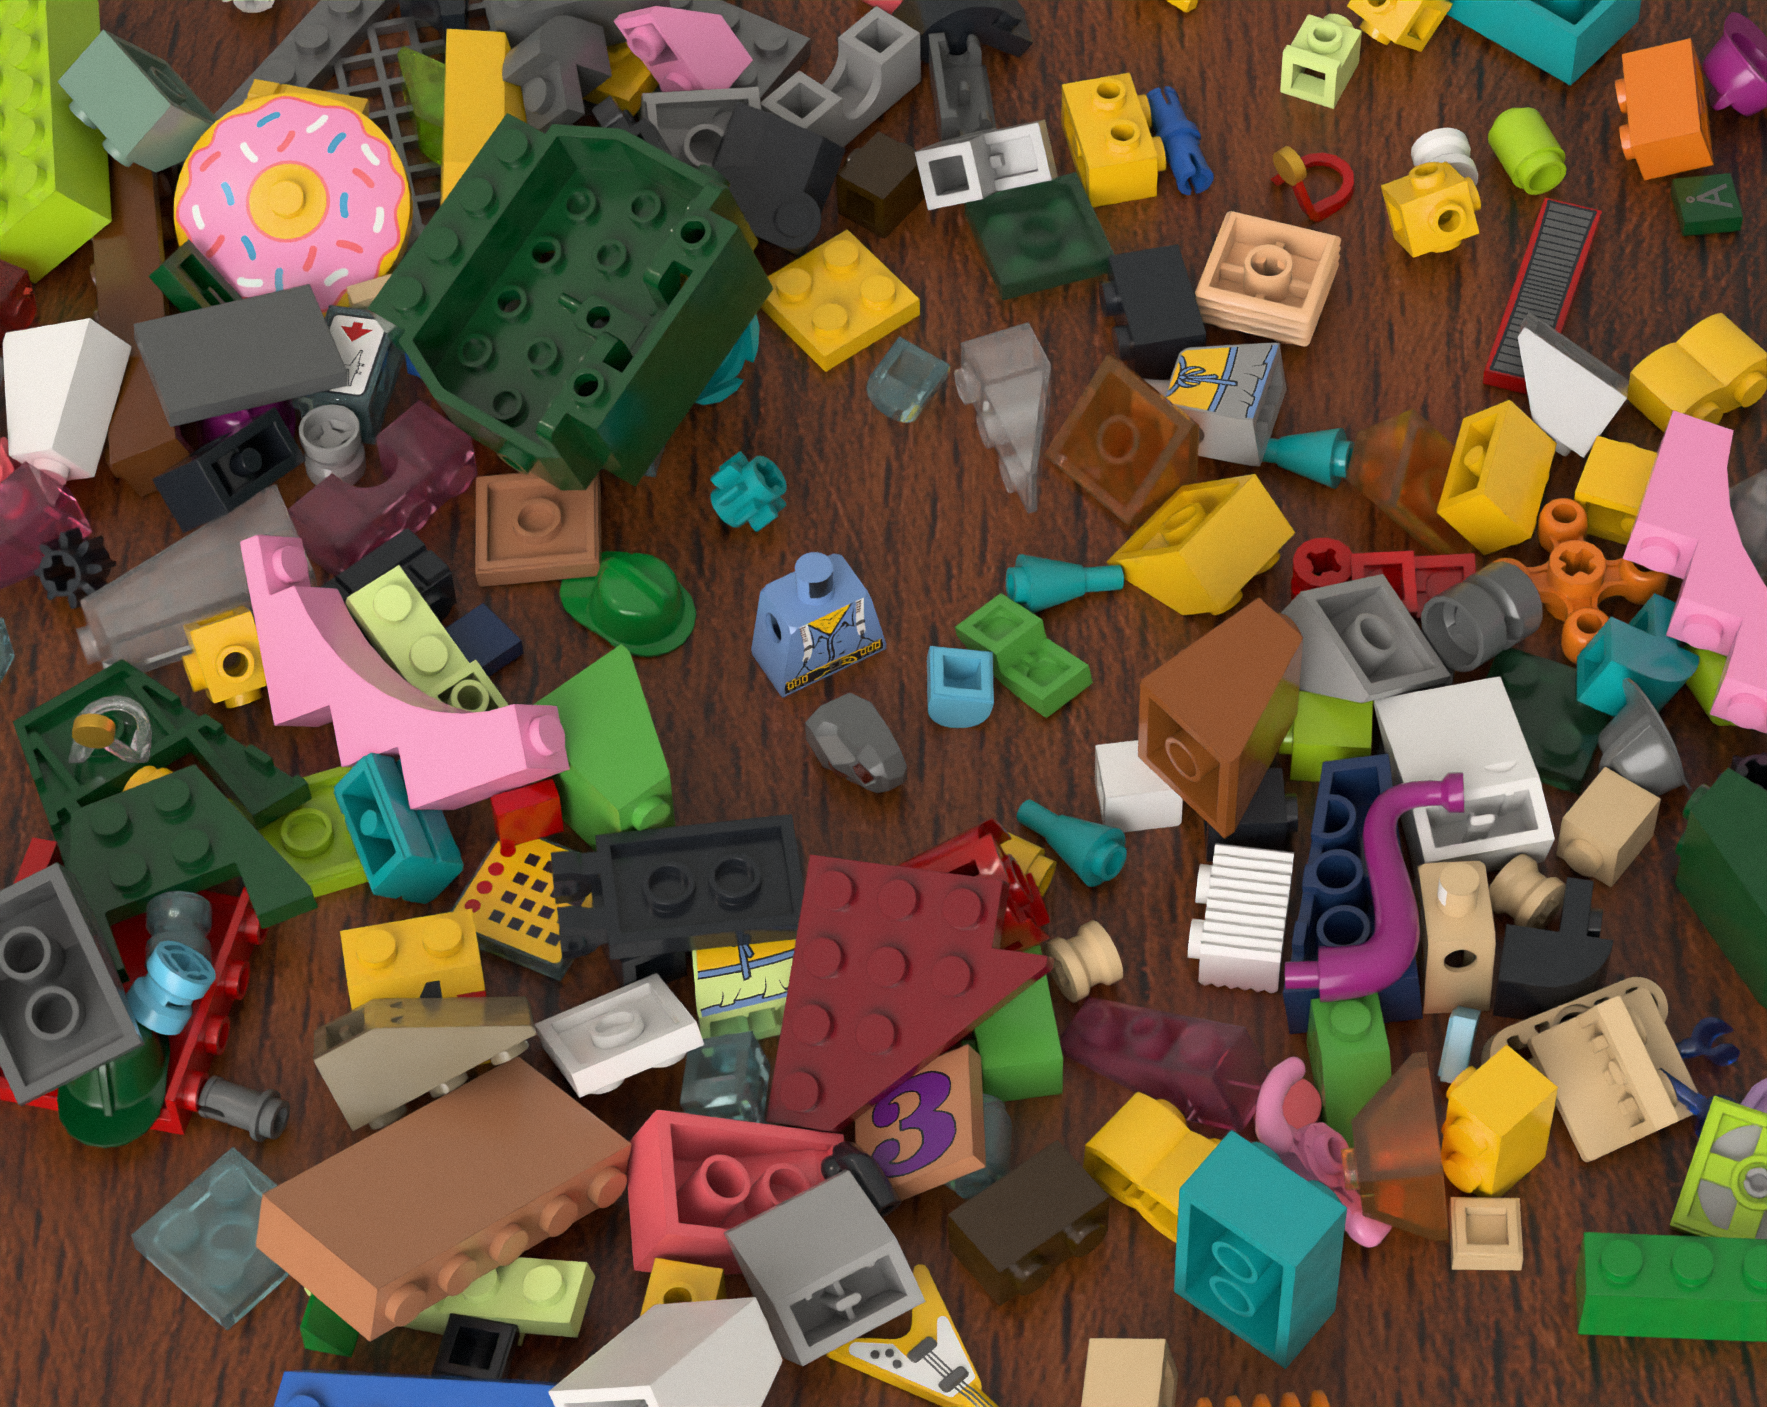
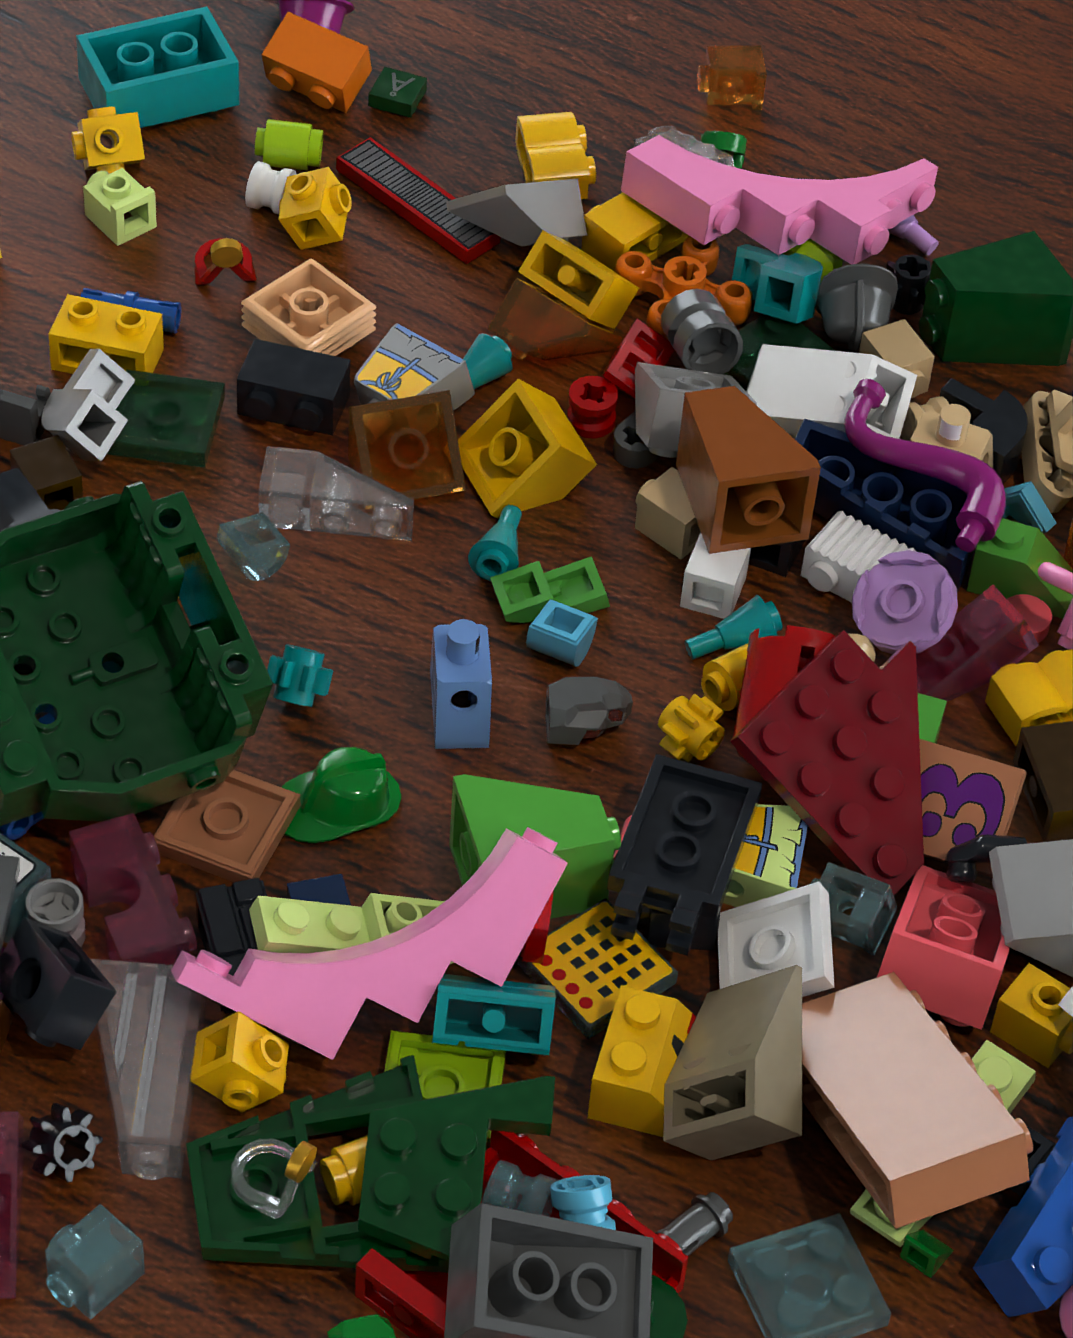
camera: 70 degrees left, 5 degrees down
(890, 838) = (691, 727): none -> yellow gear
(1176, 960) = (905, 601): none -> lavender tile

